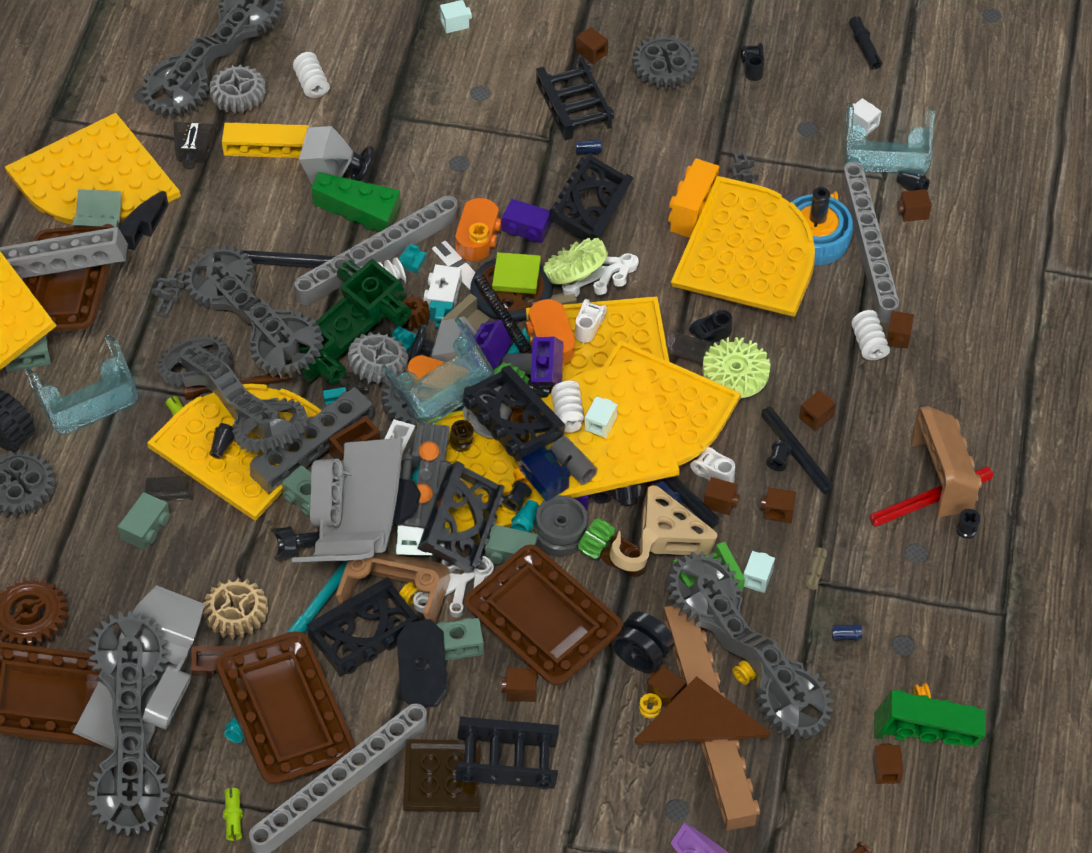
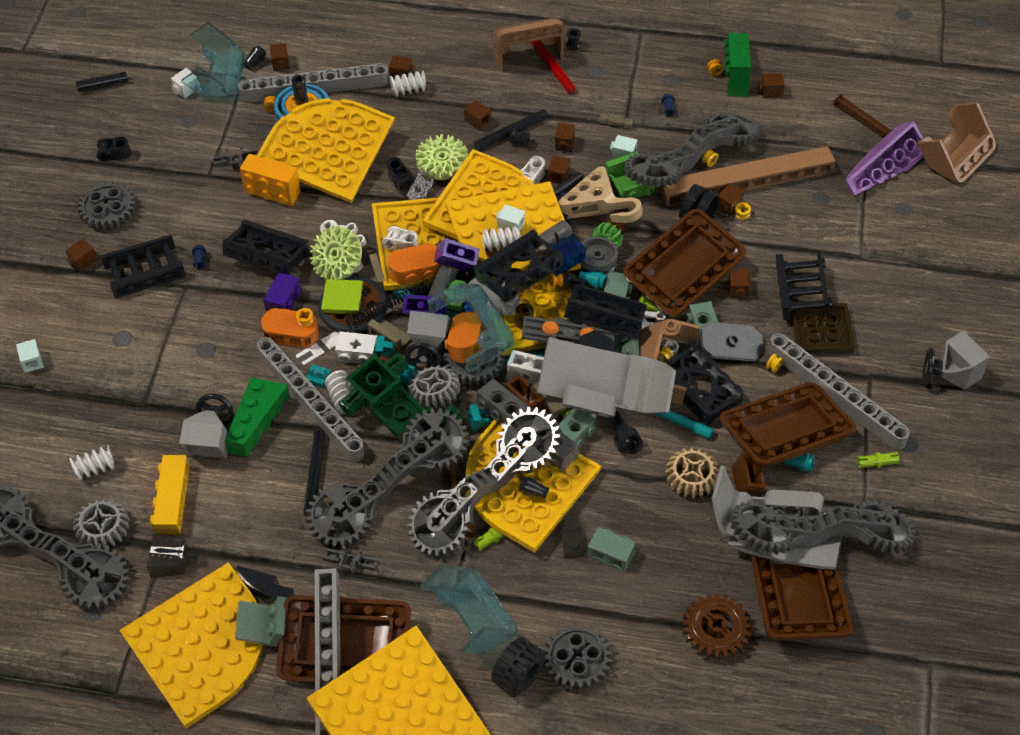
camera: 90 degrees left, 0 degrees up
(388, 712) = (774, 363): none -> yellow bush
(701, 716) = (760, 173): reddish brown tile -> none

